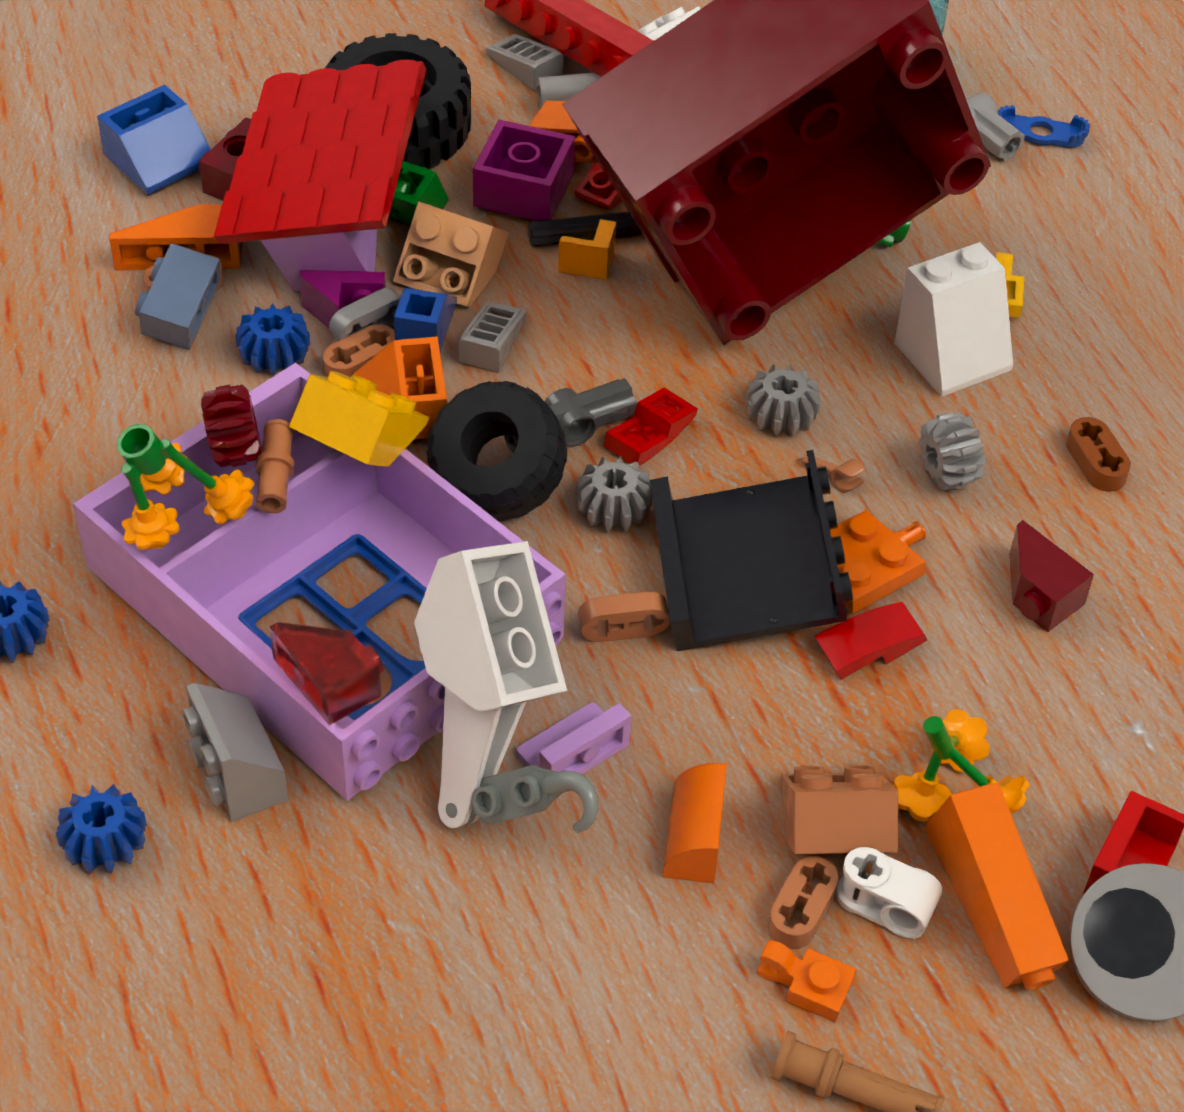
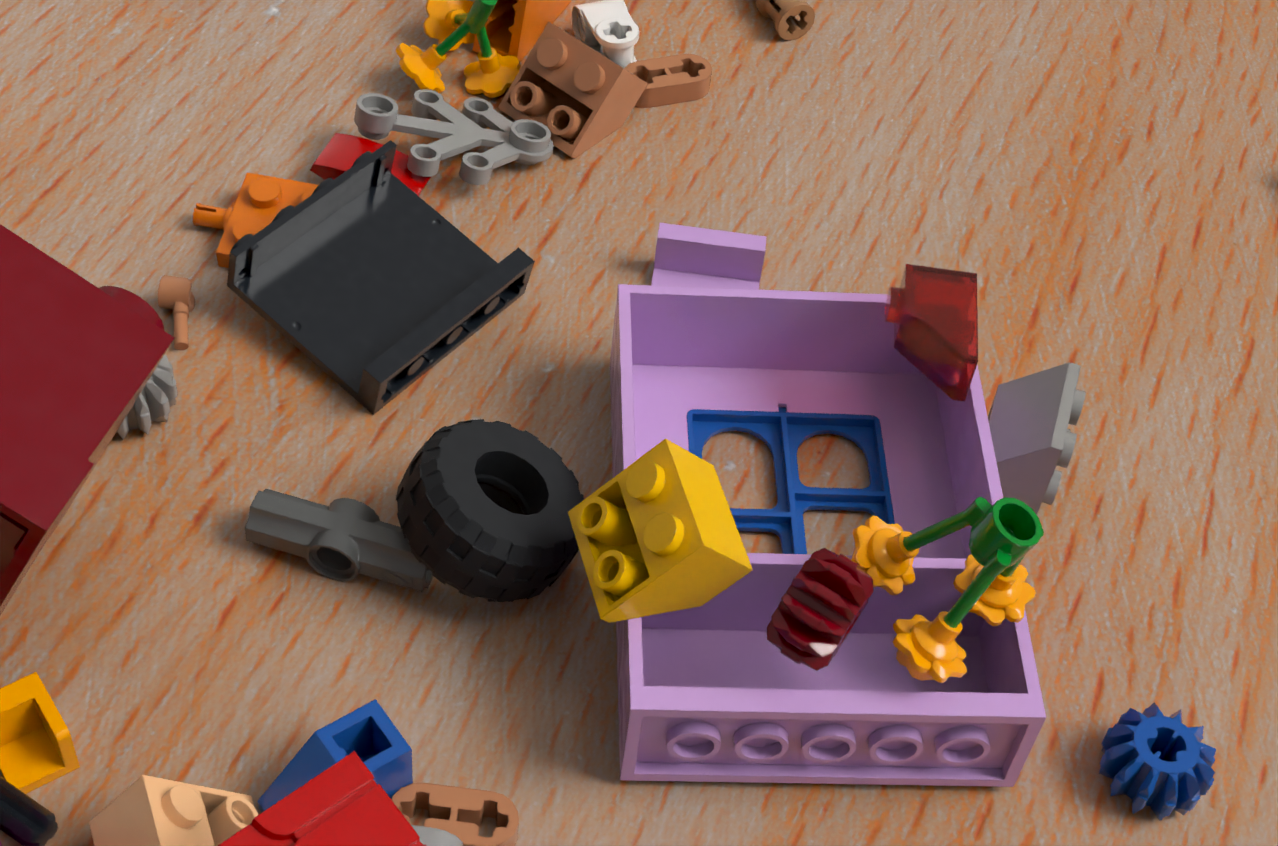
camera: 140 degrees left, 0 degrees up
(101, 829) = (1189, 484): blue gear -> none
(274, 466) = (769, 583): nougat pin -> none
(413, 371) = (487, 693): orange slope -> none
(490, 336) = (288, 692): light grey slope -> none
(492, 652) = (793, 223): white slope -> none
(614, 494) = (403, 420): light grey gear -> none
(624, 616) = (547, 324): nougat beam -> none
(653, 427) = (243, 470): red slope -> none
(695, 823) = (686, 153): orange brick -> none
(814, 982) = (720, 44): orange plate -> none
(857, 707) = (458, 132): none -> light grey plant
(952, 451) = (81, 214): light grey gear -> none
(1045, 578) = (180, 103): dark red slope -> none

